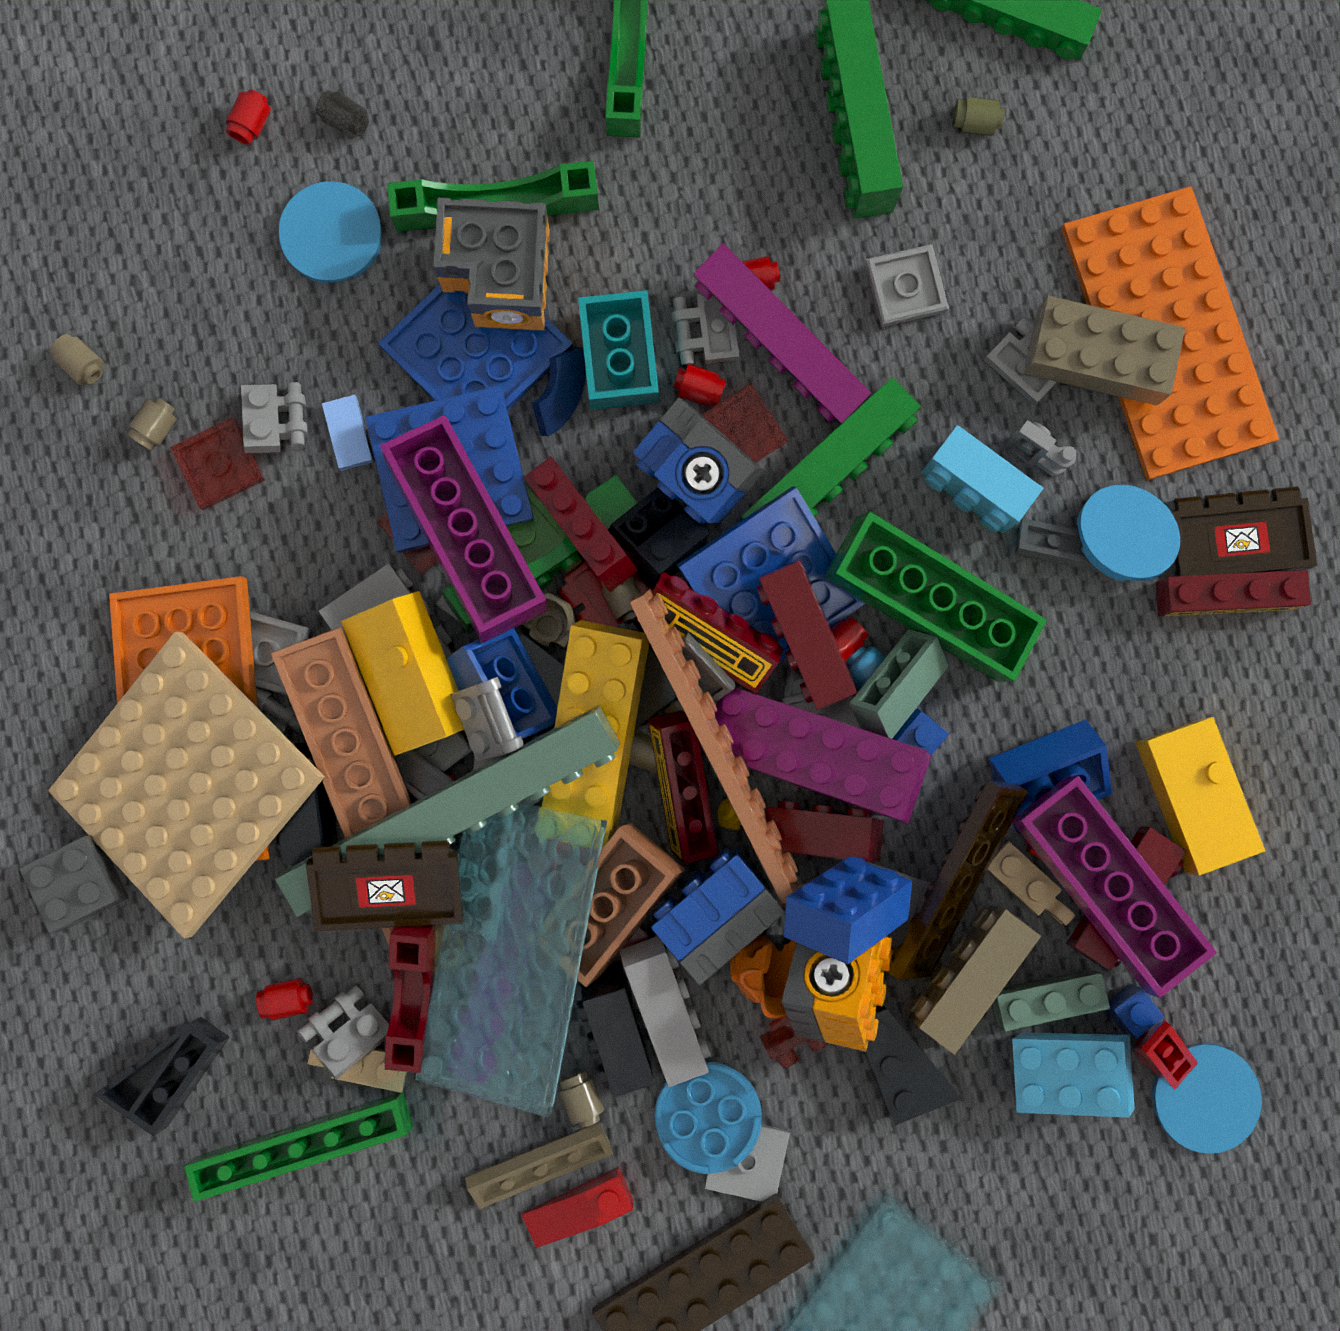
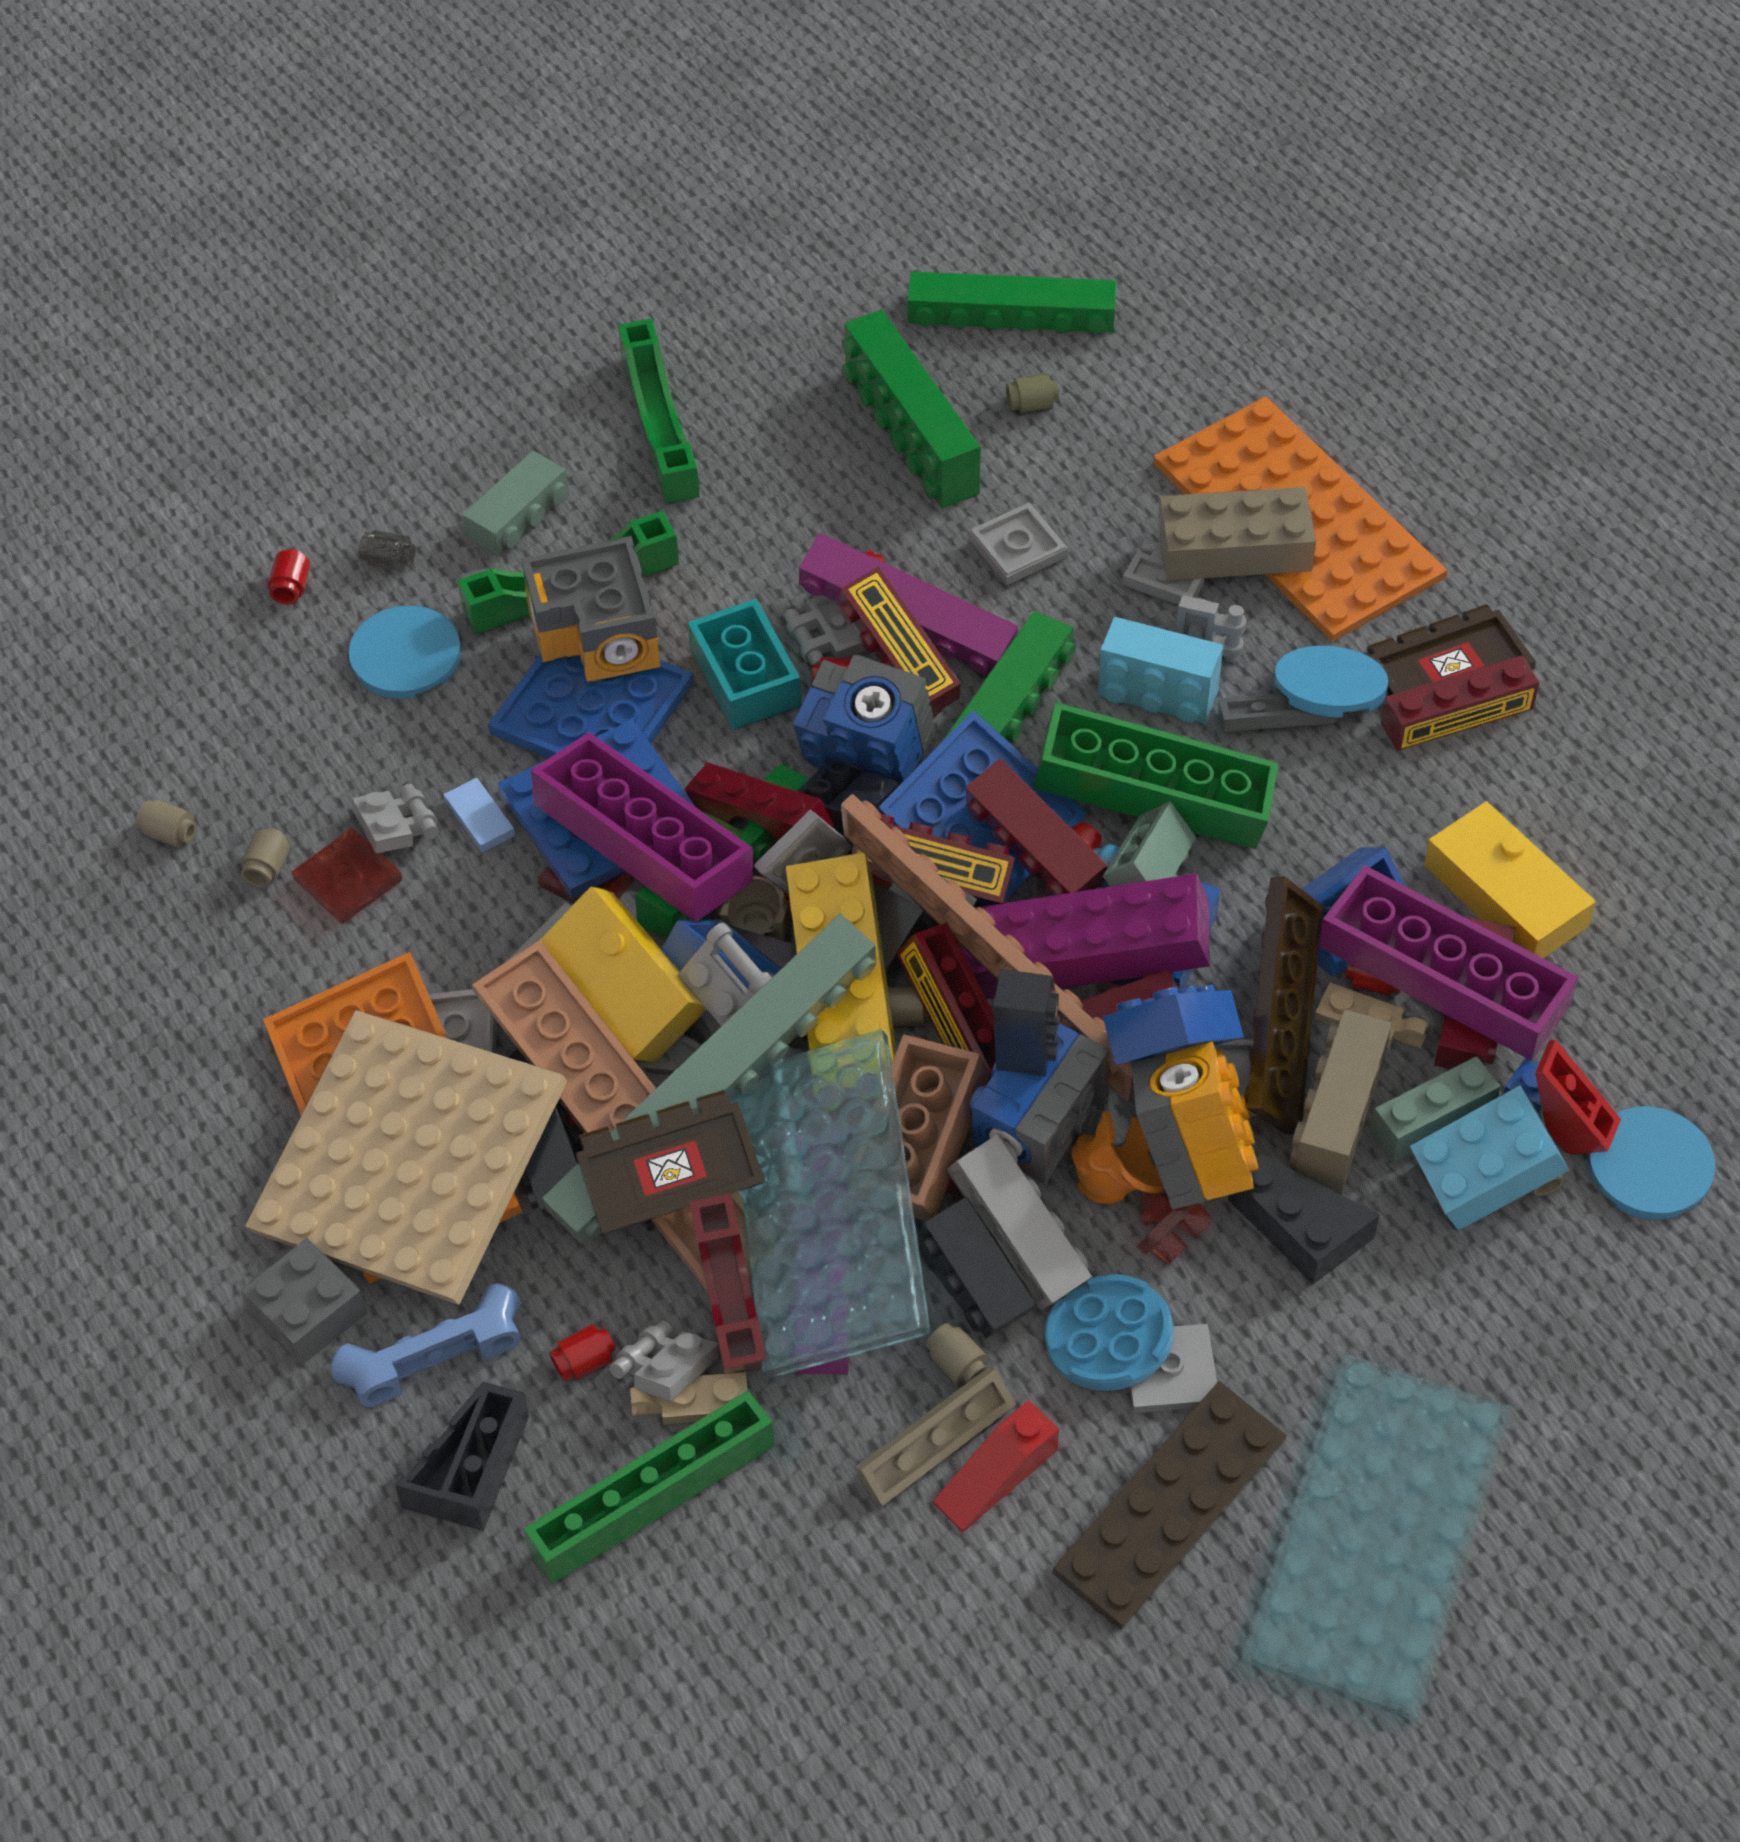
camera: 10 degrees left, 30 degrees down
(118, 968) = (378, 1373): none -> medium blue plate
(471, 97) = (516, 503): none -> sand green brick
(562, 392) = (697, 716): dark blue tile -> none
(595, 600) = (805, 842): none -> light grey plate
(719, 886) = (1025, 1022): none -> black wedge
(757, 386) = (896, 636): none -> brick

